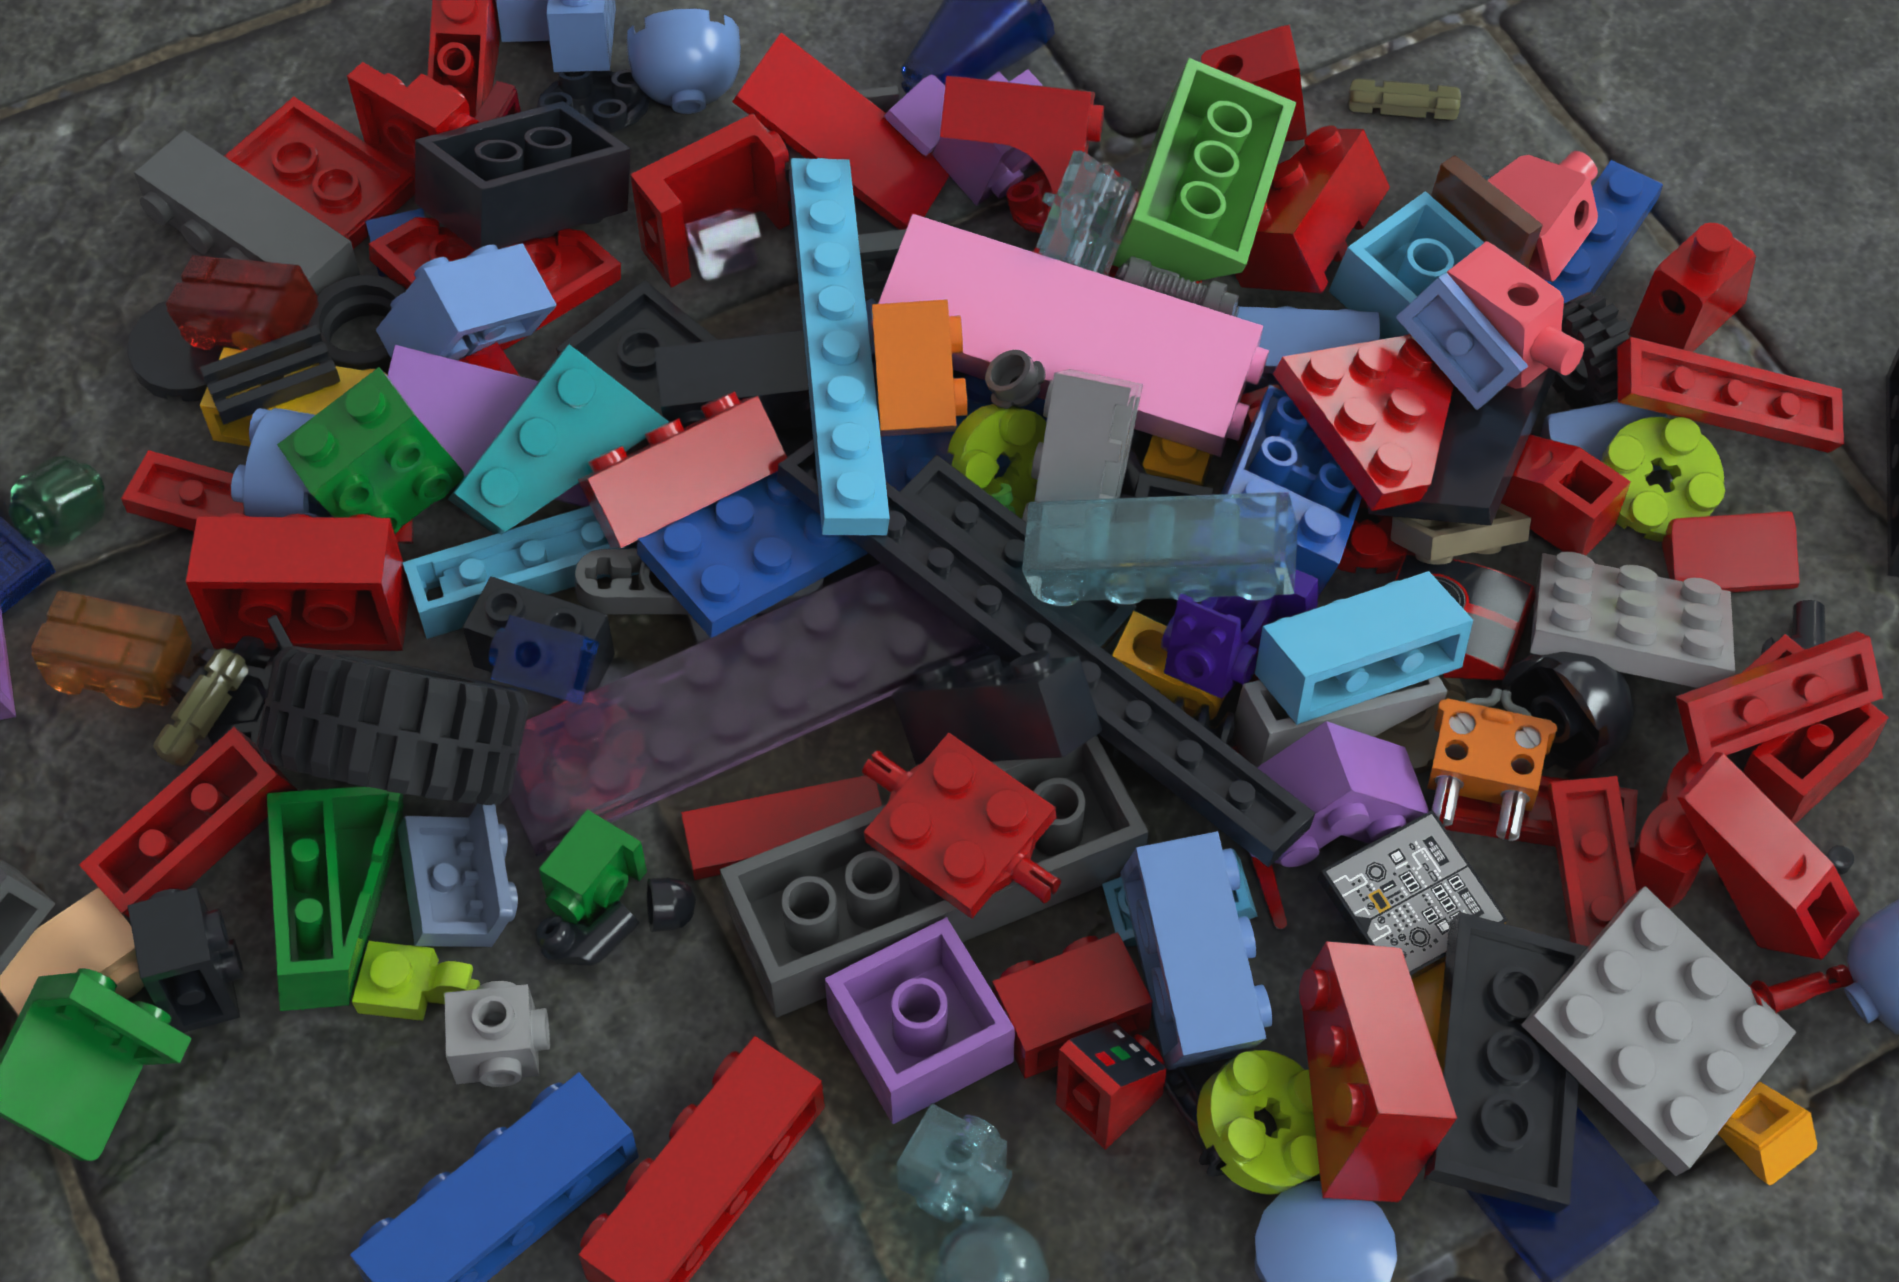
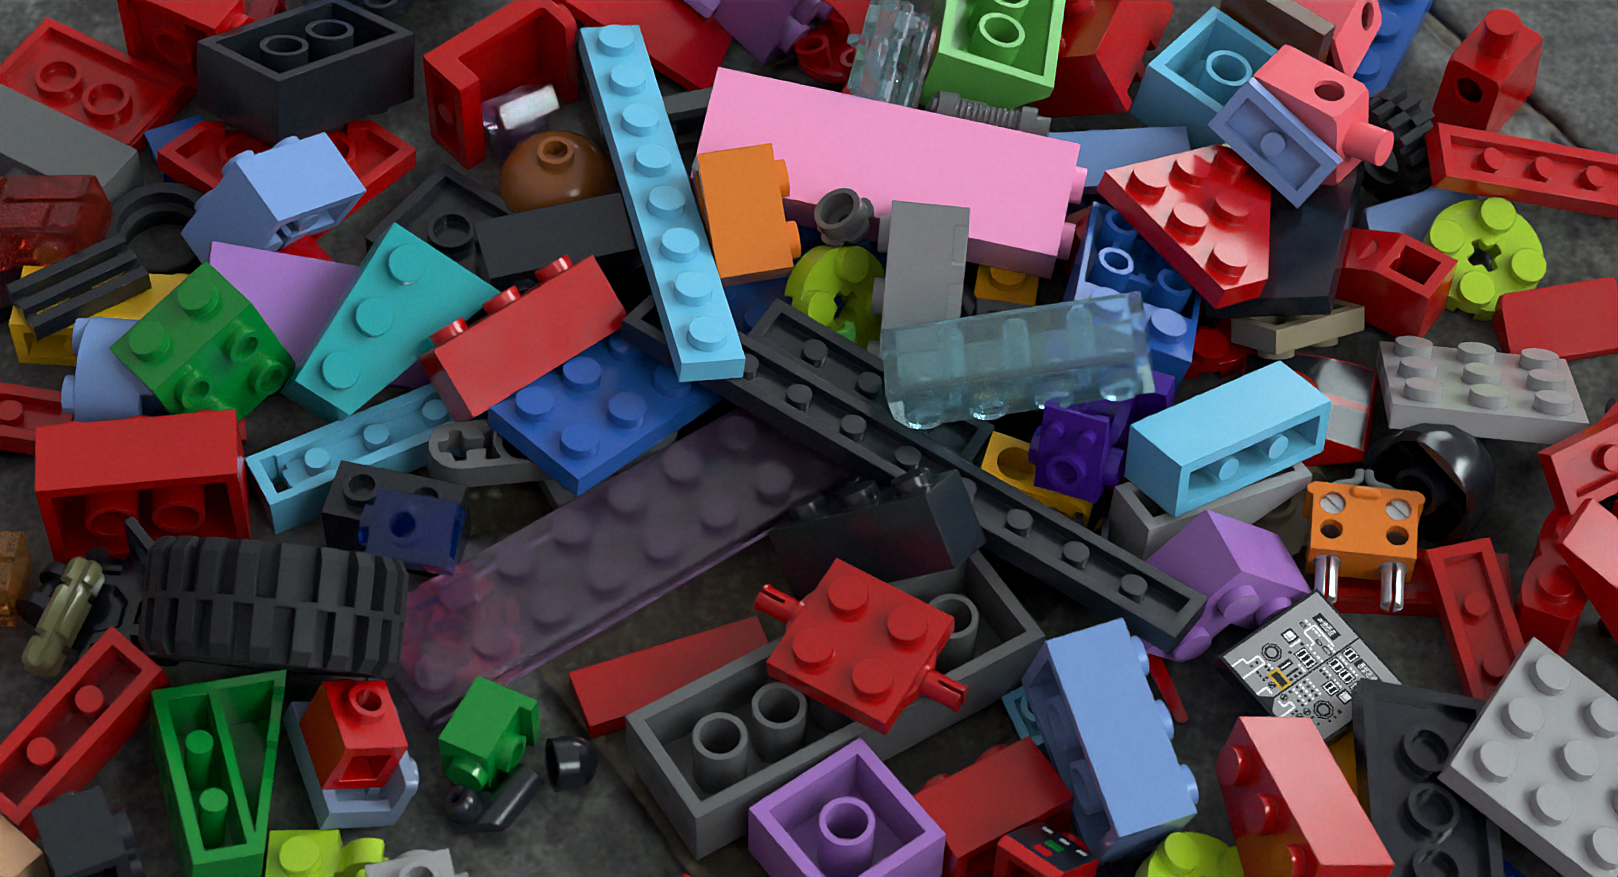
camera: 10 degrees left, 5 degrees down
(456, 856) = (353, 734): none -> red brick
(748, 300) = (555, 170): none -> dark orange cylinder

